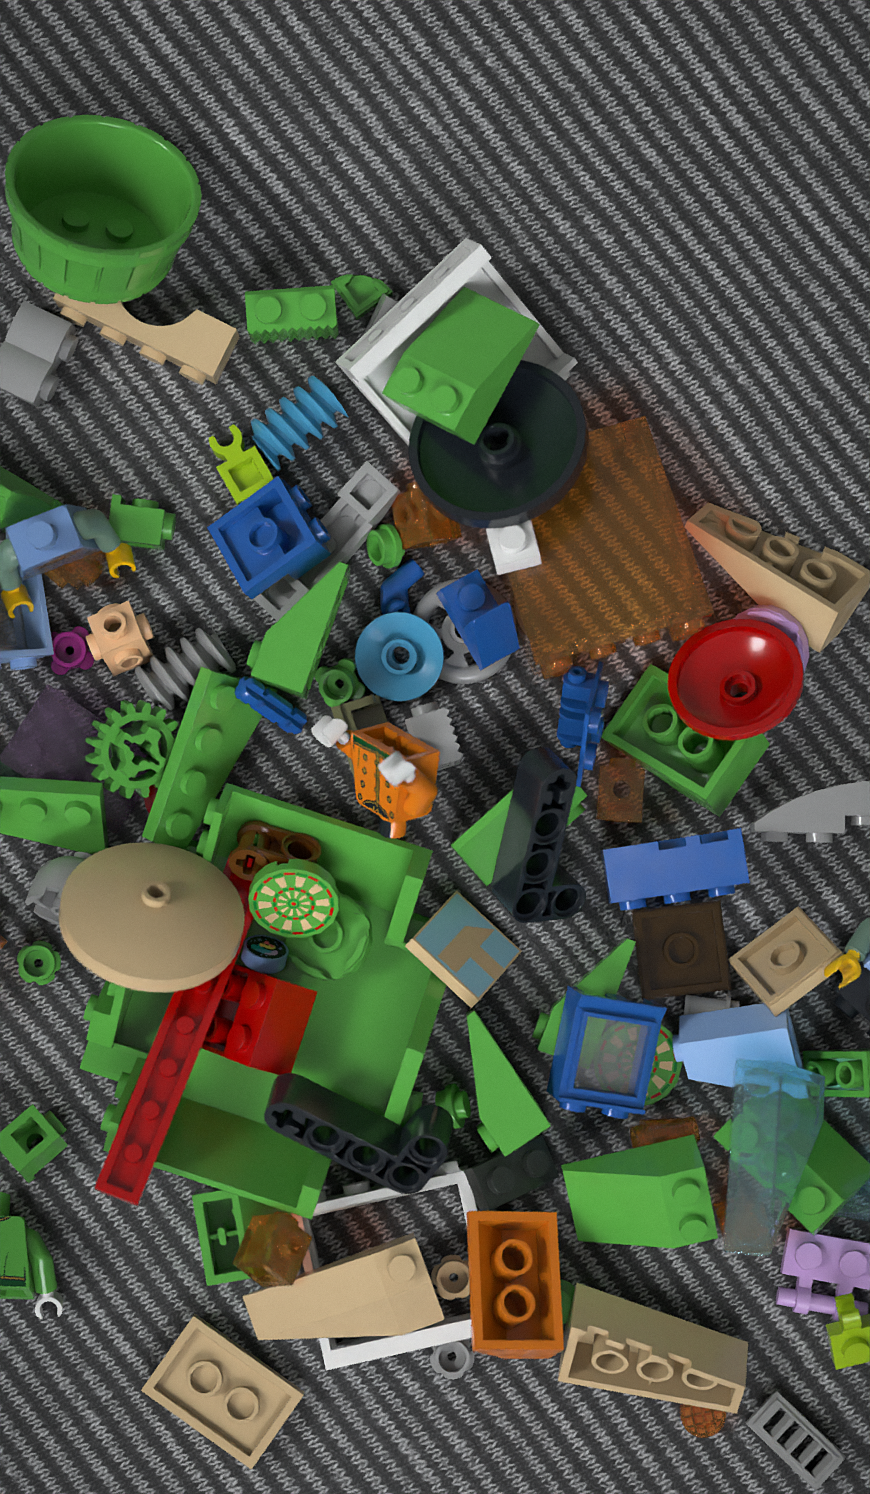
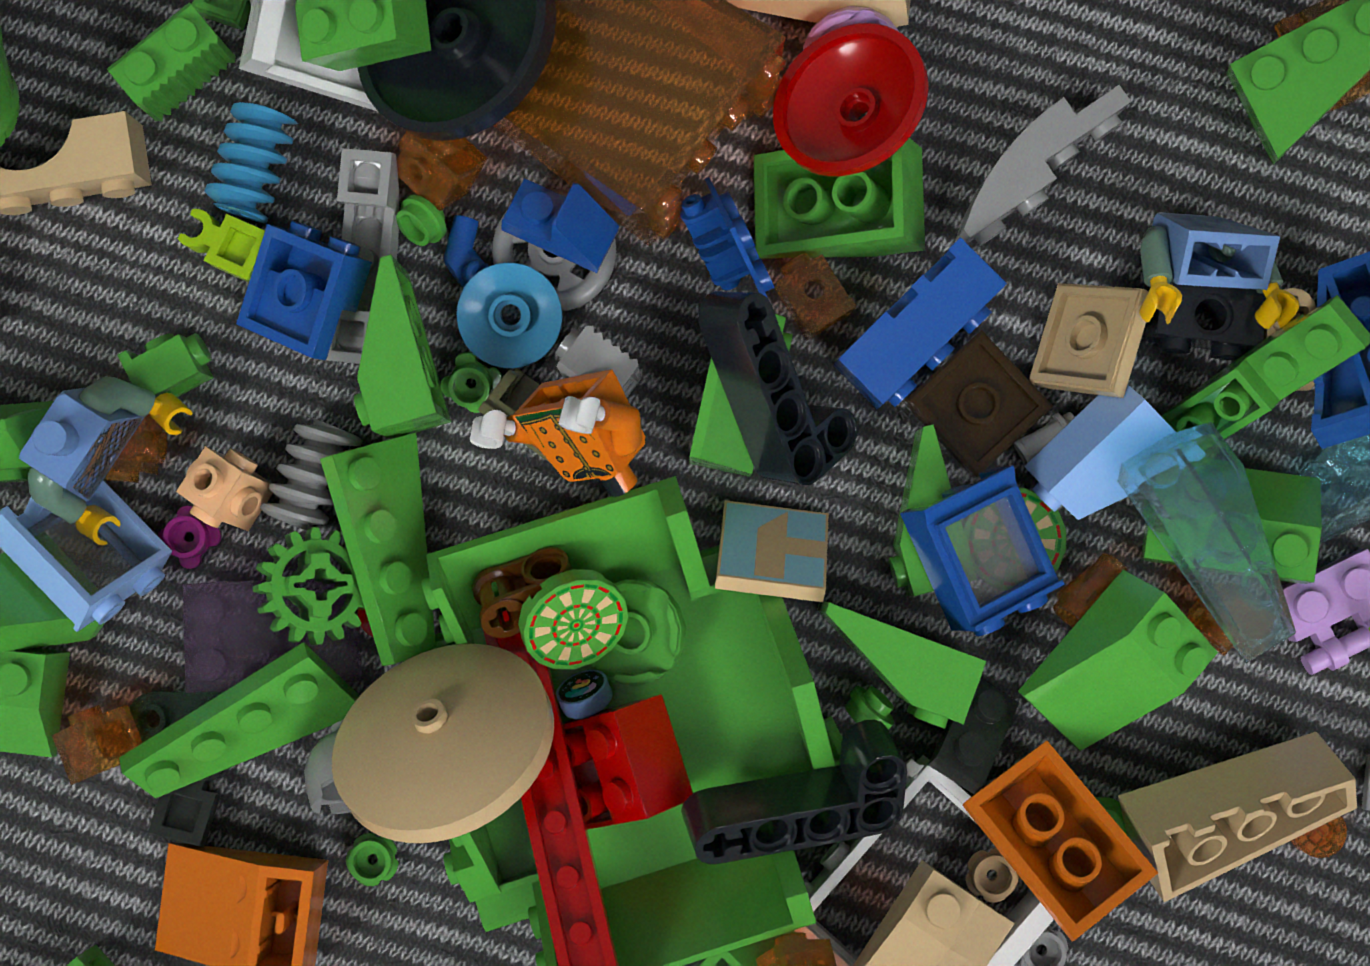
camera: 40 degrees left, 0 degrees up
(270, 705) = (417, 449): blue axle -> none
(513, 547) = (541, 119): white plate -> none

